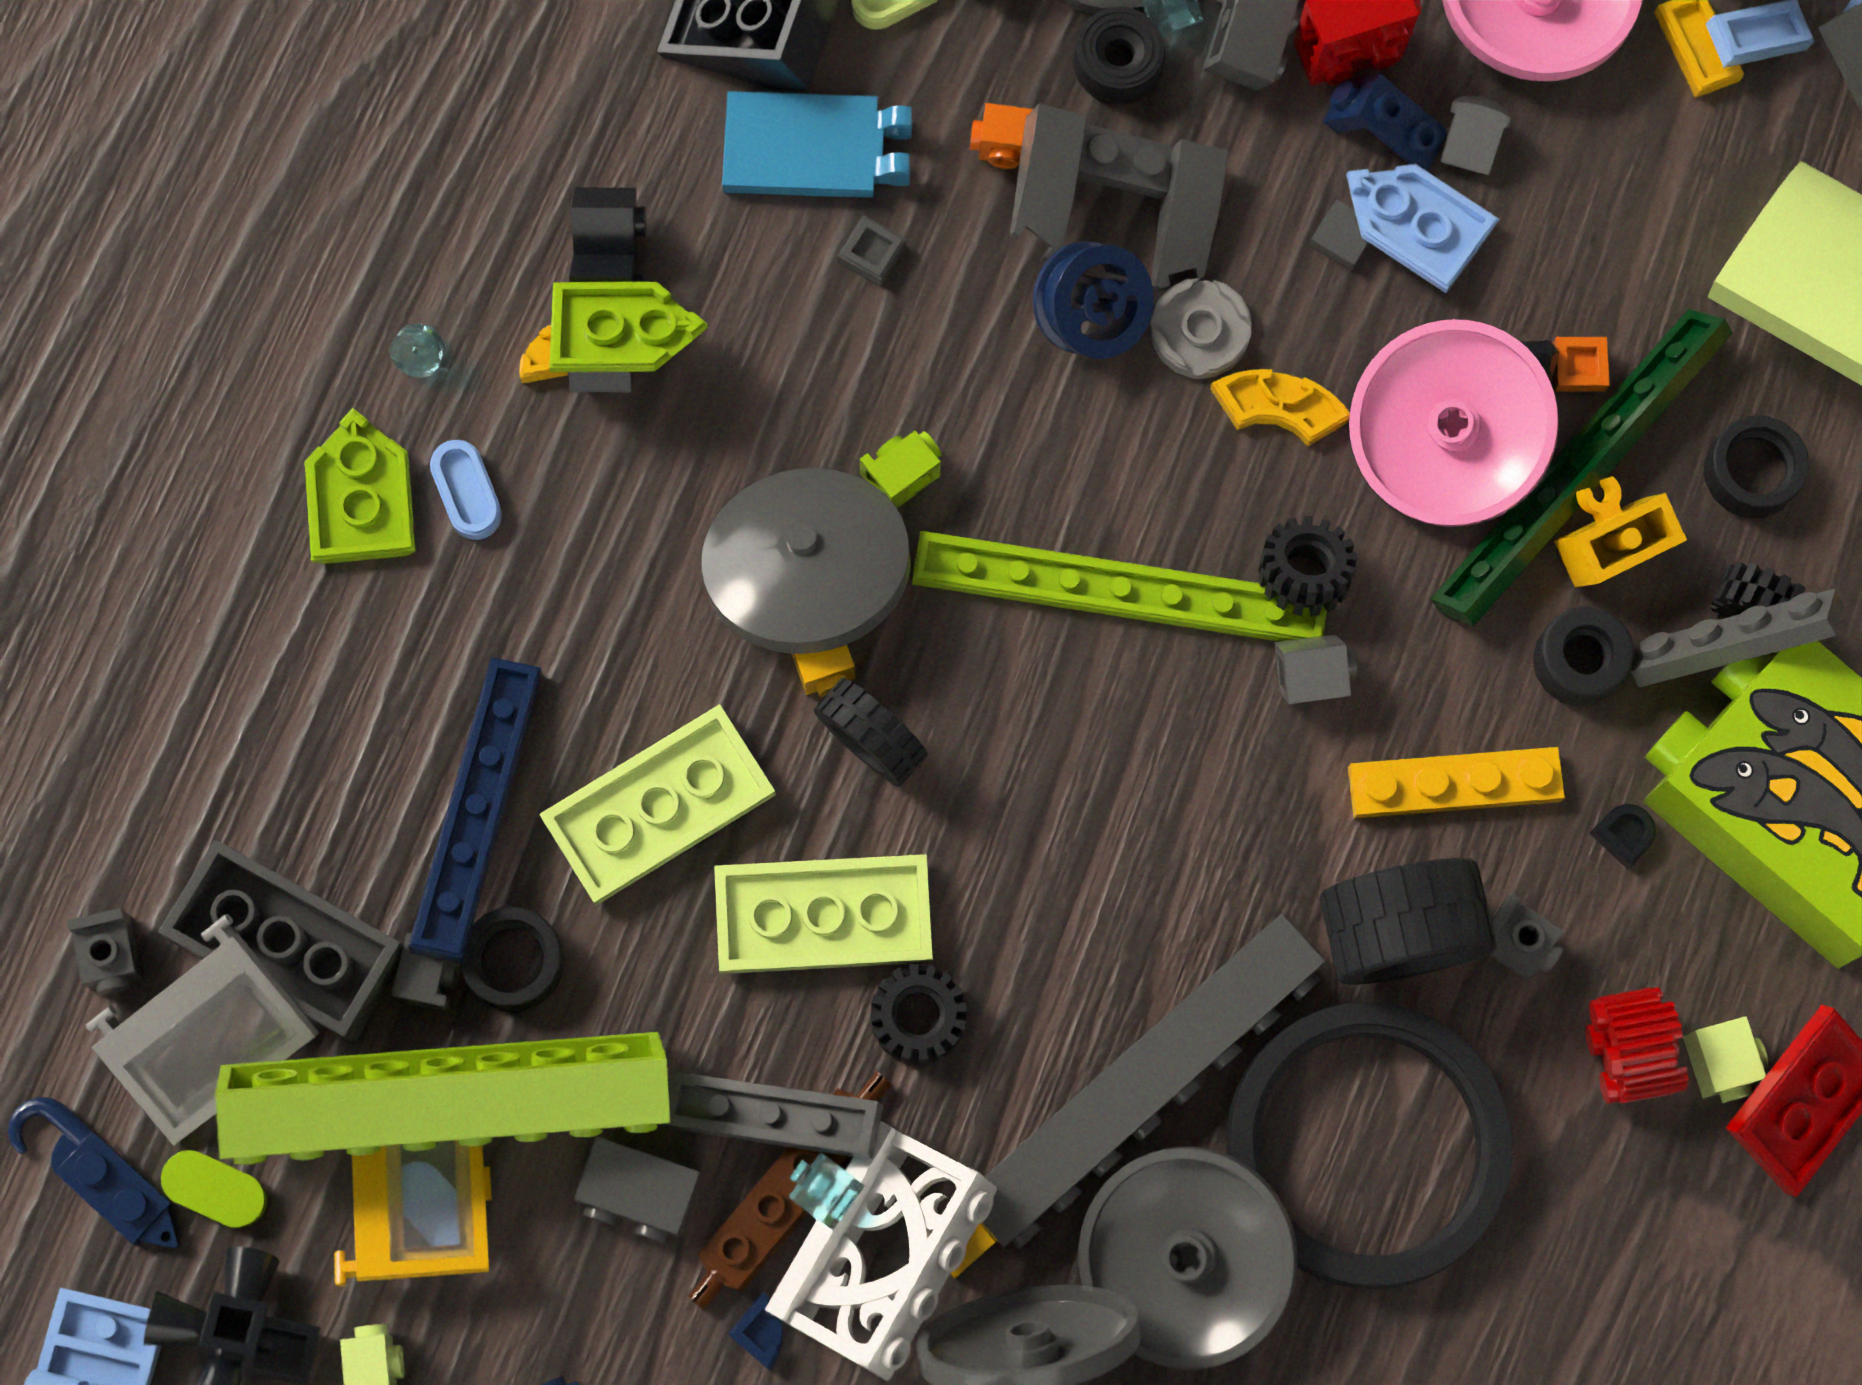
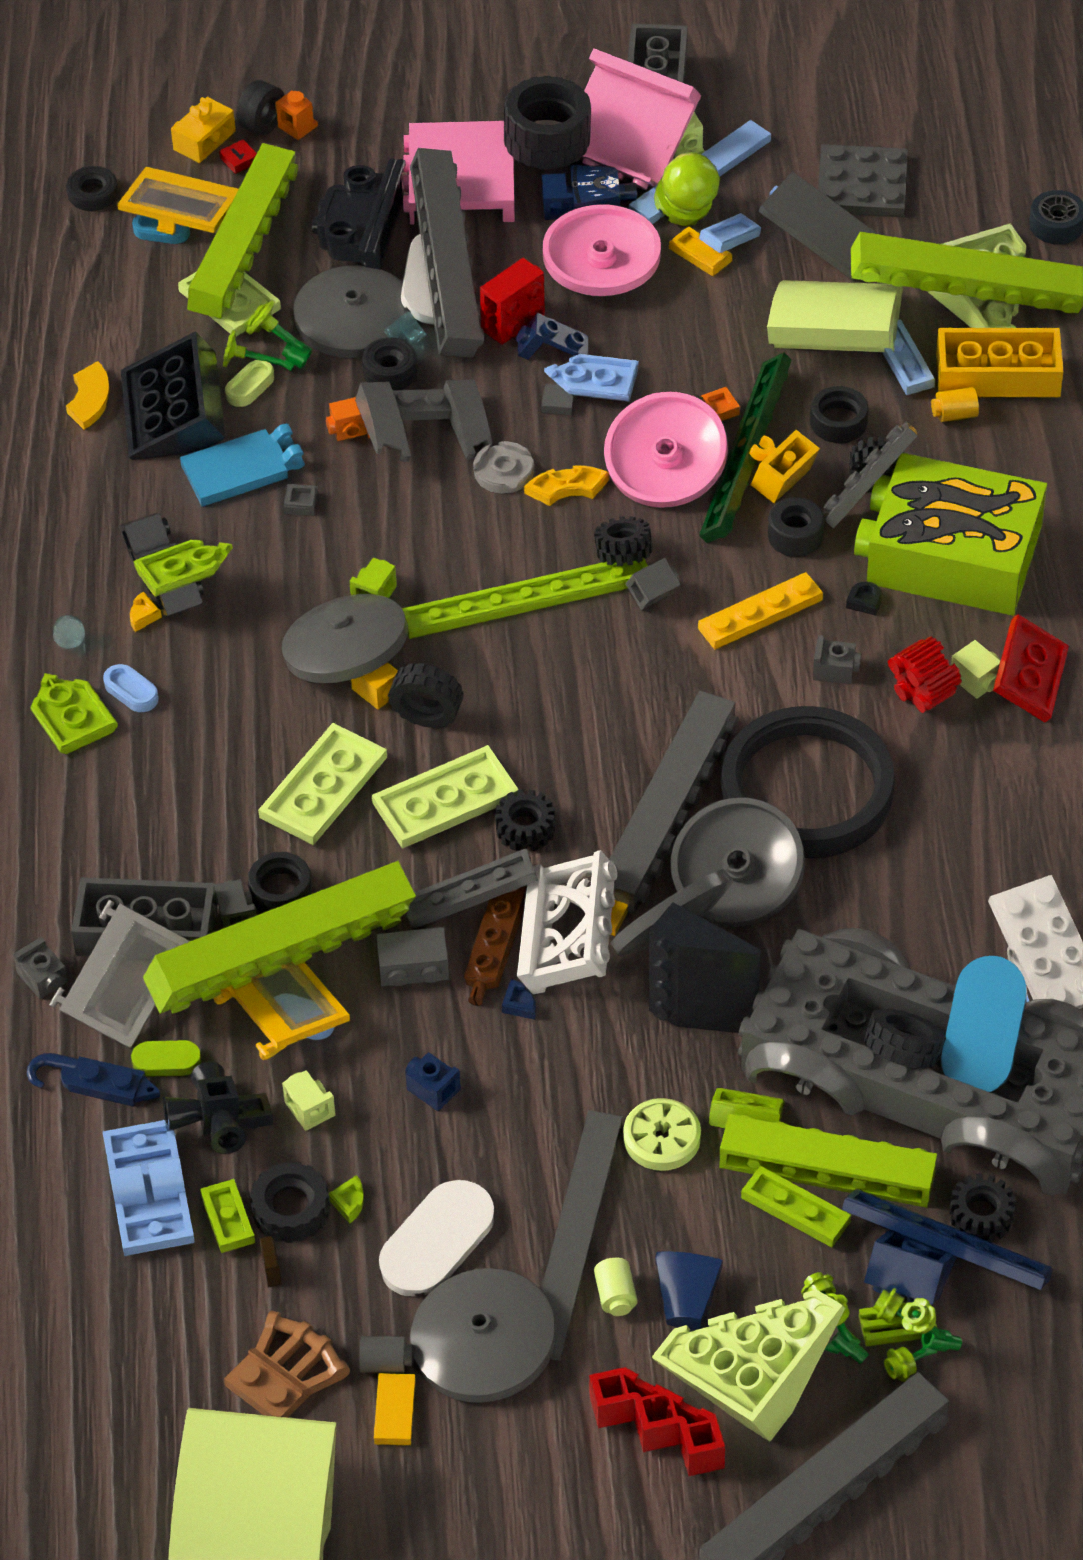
camera: 20 degrees left, 25 degrees down
(475, 811) = (221, 820): dark blue tile -> none
(824, 1190) = (518, 906): clear light blue tile -> none
(1064, 304) = (448, 457): dark blue wheel -> none
(1407, 921) = (769, 660): black tyre -> none
(1475, 133) = (603, 328): dark grey tile -> none

